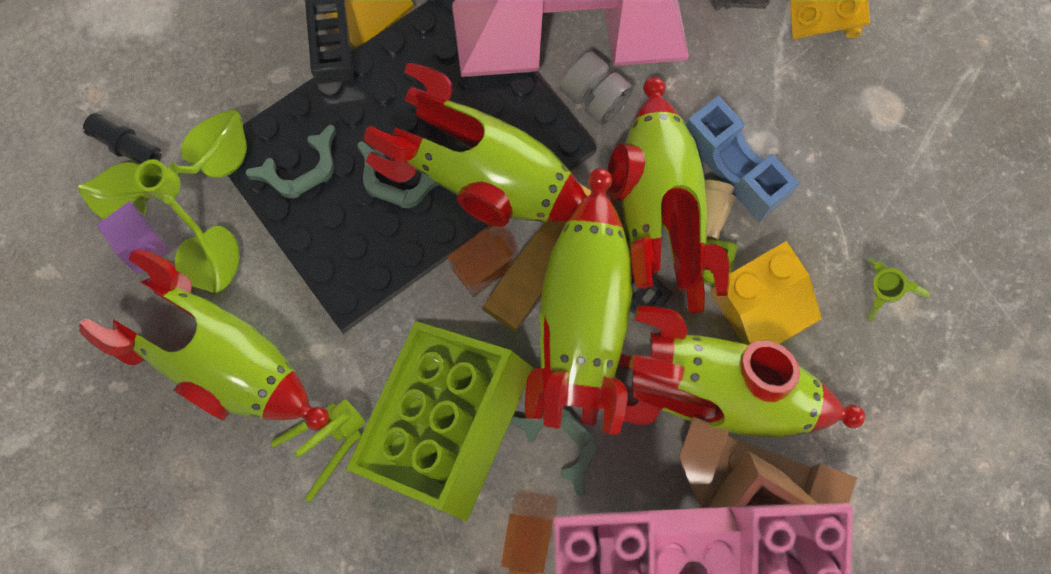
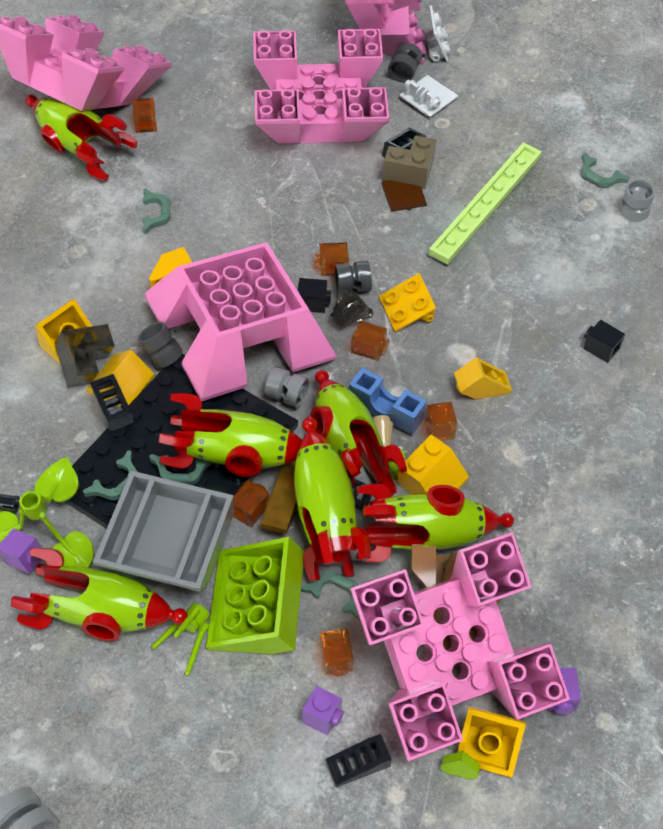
camera: 20 degrees left, 20 degrees down
(333, 287) = (166, 531): none -> light grey slope
(748, 46) = (369, 340): none -> clear orange brick
(810, 217) = (441, 421): none -> clear orange brick
(889, 287) = (499, 440): lime plant -> none
(897, 165) = (481, 380): none -> yellow slope

